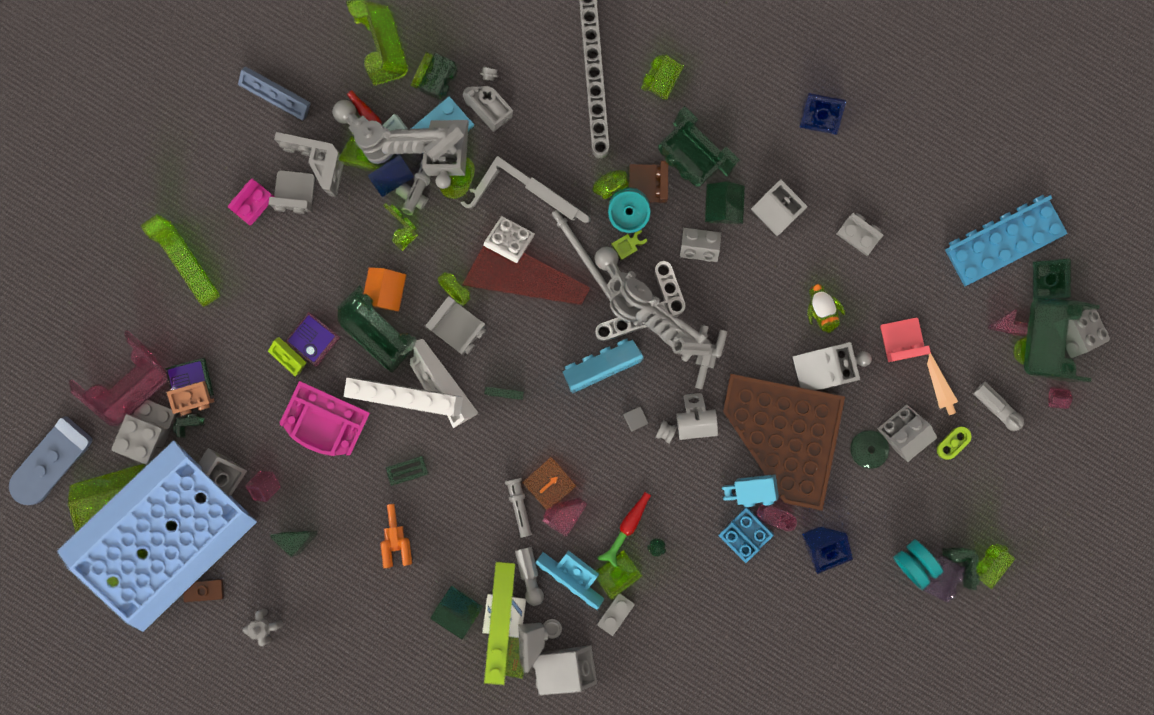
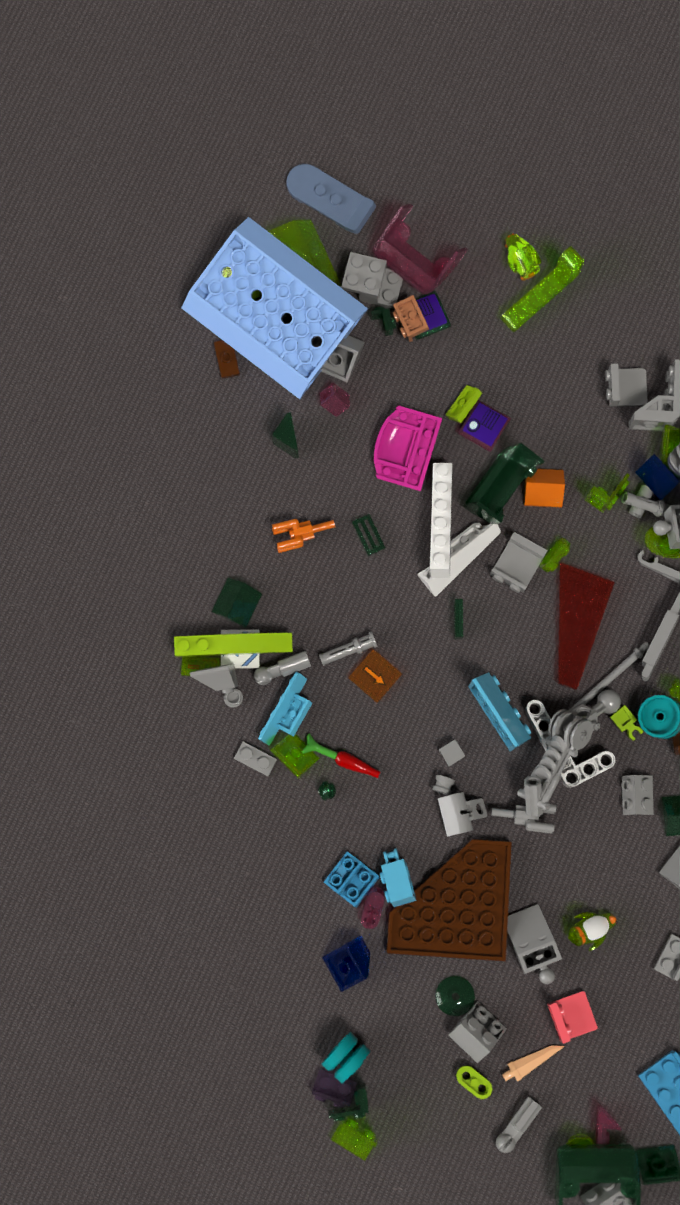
camera: 75 degrees right, 5 degrees down
(143, 275) = (522, 257): none -> clear neon green animal
(250, 202) = (610, 347): dark pink bracket -> none
(261, 628) = (199, 417): light grey plant -> none
(509, 239) = (612, 602): white tile -> none
(564, 515) = (346, 693): clear pink slope -> none
(565, 670) = (194, 715): light grey slope -> none
(1060, 398) = (536, 1189): clear pink slope -> none

